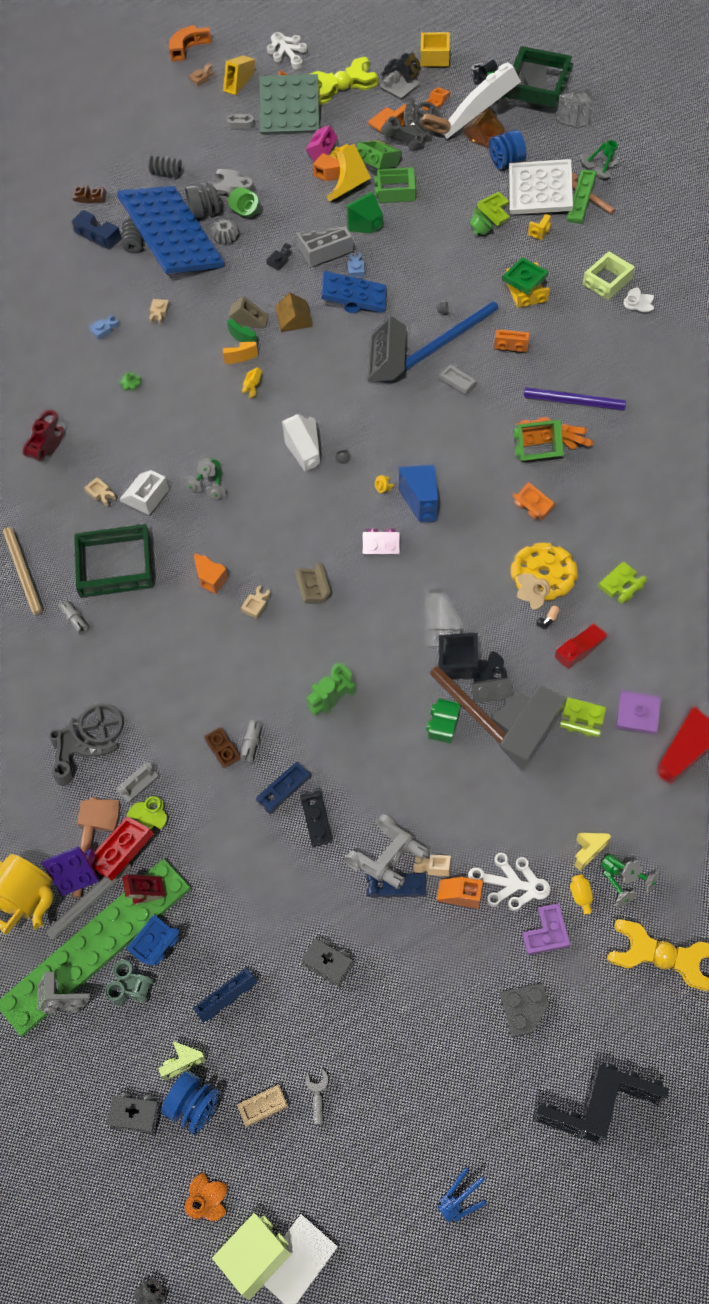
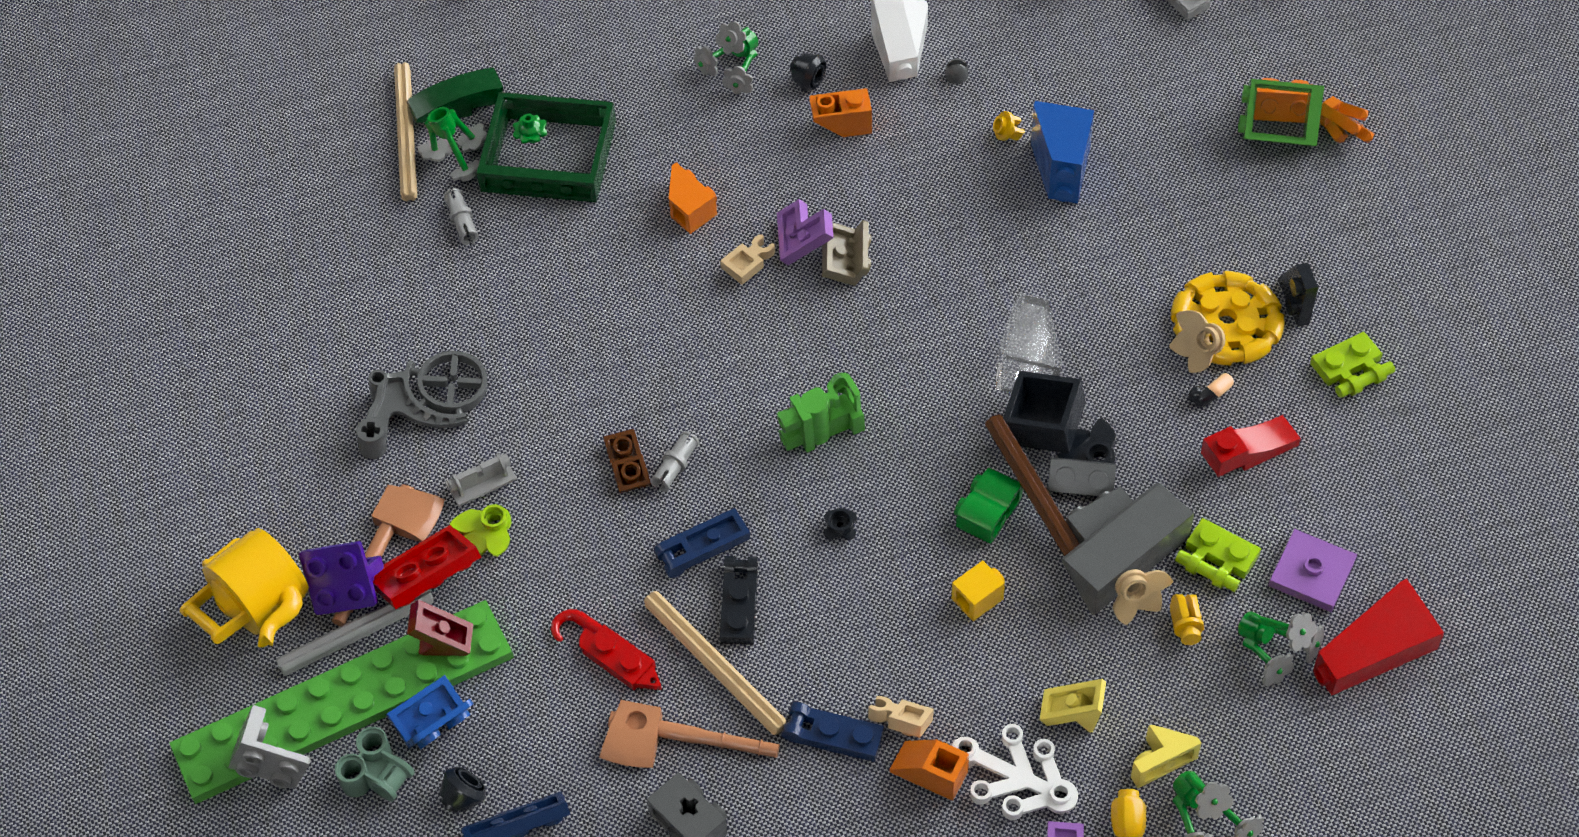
camera: 15 degrees right, 5 degrees down
(46, 562) = (443, 124): none -> plant
(47, 541) = (457, 93): none -> dark green slope
(99, 490) = (559, 39): tan plate -> none
(101, 553) = (529, 129): none -> green plant
(146, 491) = (630, 56): white slope -> none
(186, 984) = (461, 790): none -> black cone
(248, 870) = (610, 651): none -> red plate
(256, 476) = (808, 70): none -> black cone
(280, 914) = (636, 733): none -> nougat piece
(283, 580) = (801, 234): none -> medium lavender plate
(285, 498) = (843, 112): none -> orange slope
(313, 861) = (715, 663): none -> tan axle
(360, 749) = (836, 517): none -> black plate
(381, 542) = (974, 213): bracket -> none
(382, 867) = (818, 694): light grey connector -> none
(454, 775) = (978, 590): none -> yellow brick
(531, 831) = (1072, 703): none -> light yellow slope
(534, 501) = (1246, 207): orange bracket -> none
(547, 752) = (1139, 592): none -> tan plate
(574, 398) = (1367, 64): dark purple axle -> none
(577, 761) = (1186, 618): none -> yellow arm
(581, 546) = (1299, 292): none -> black wing
(621, 757) = (1300, 632): none -> plant

